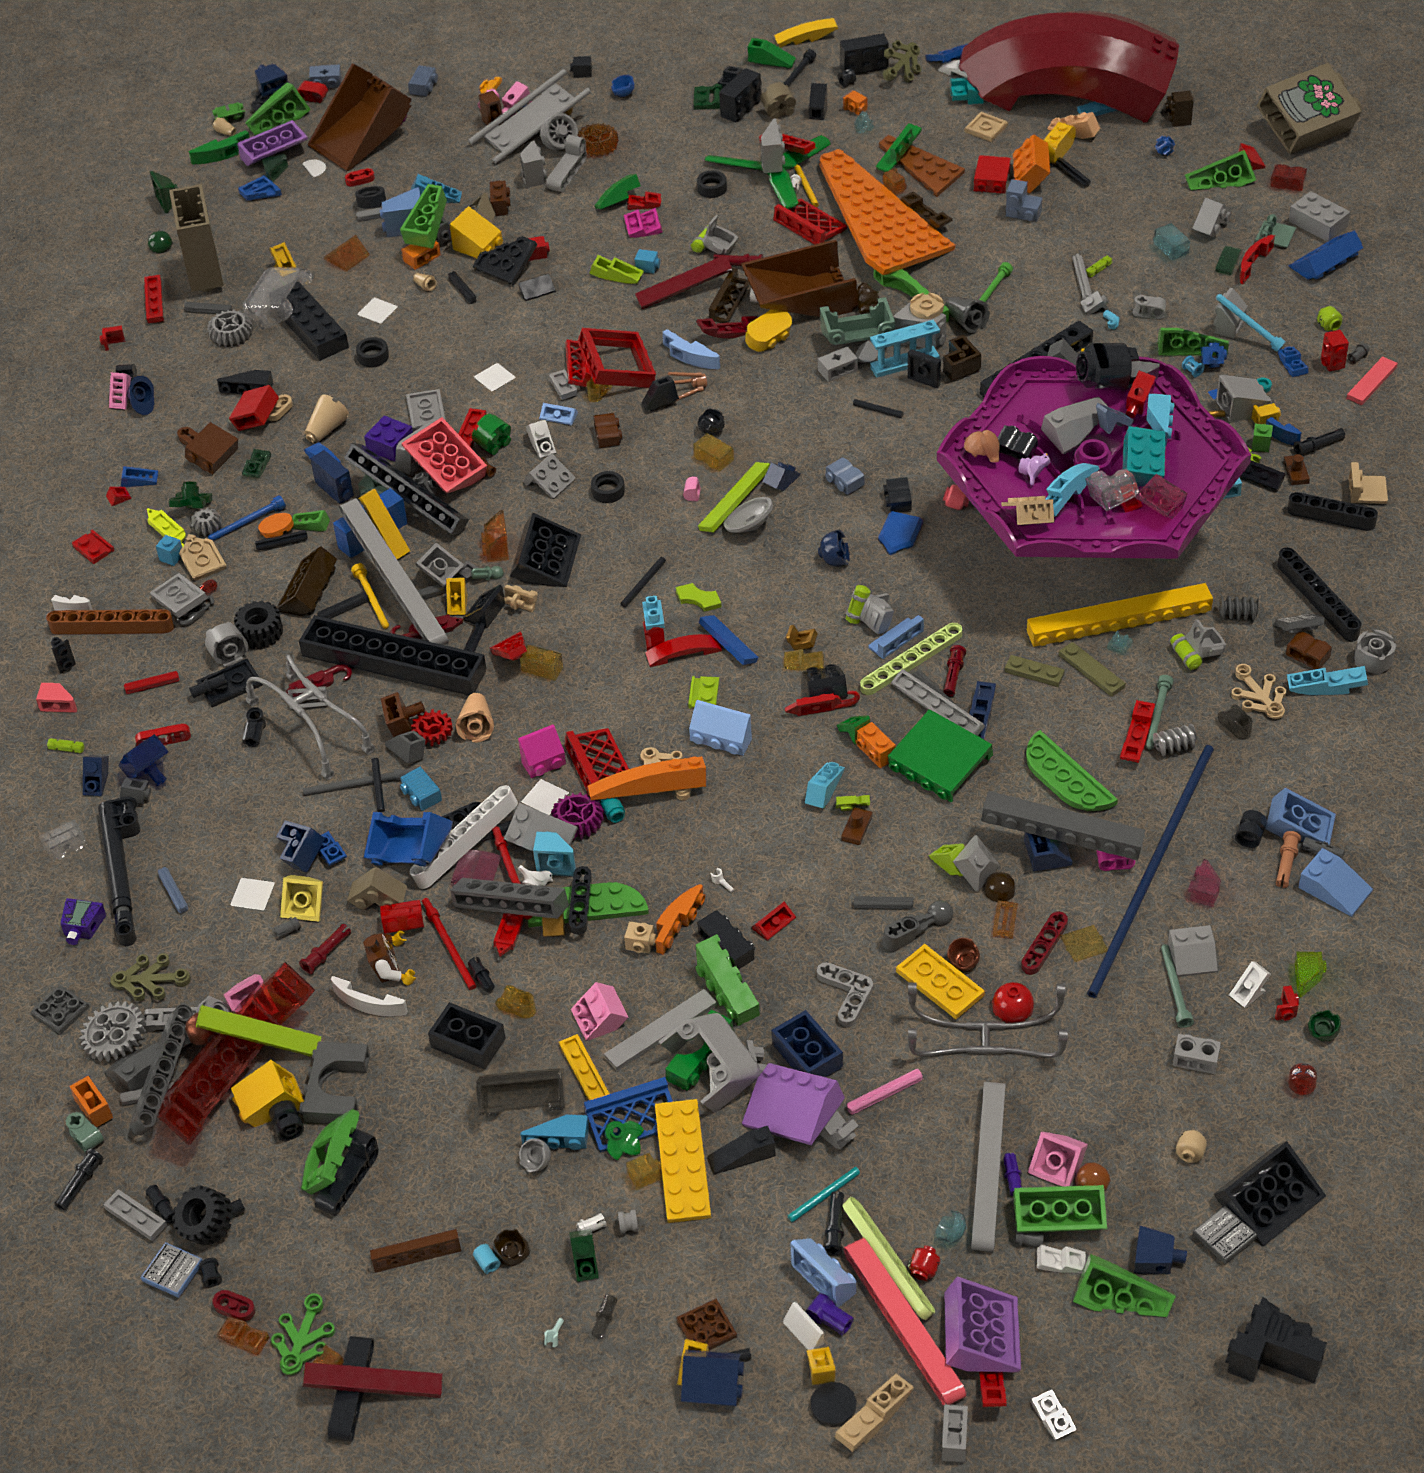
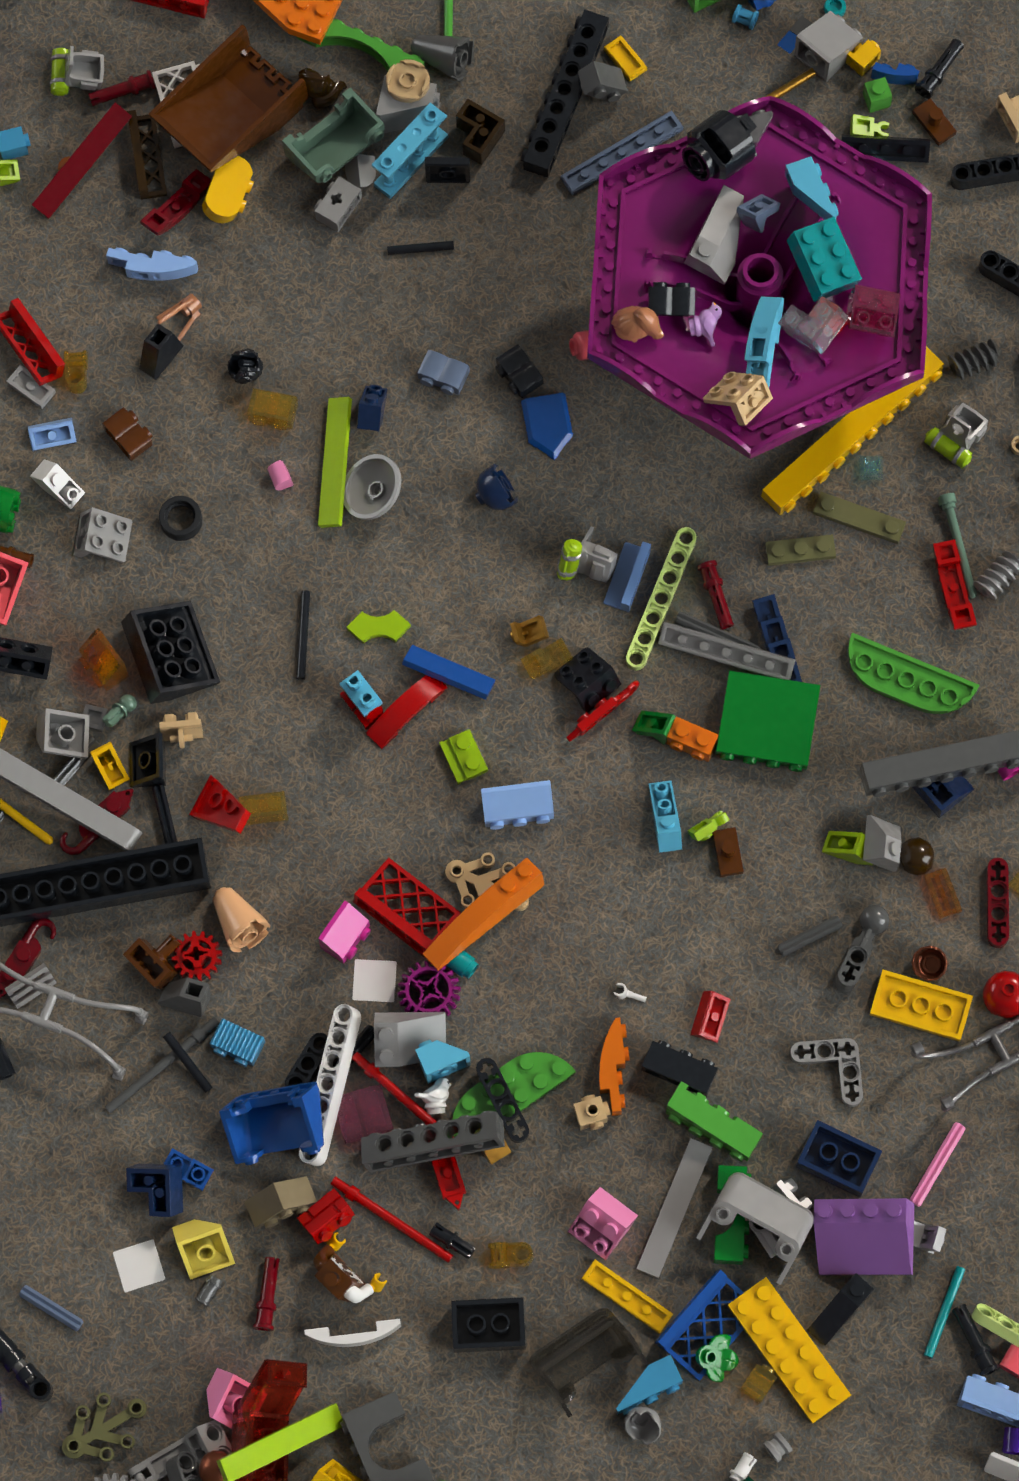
camera: 30 degrees left, 25 degrees up
(590, 338) = (58, 346): red window -> none
(1138, 395) = (771, 156): red torso -> none

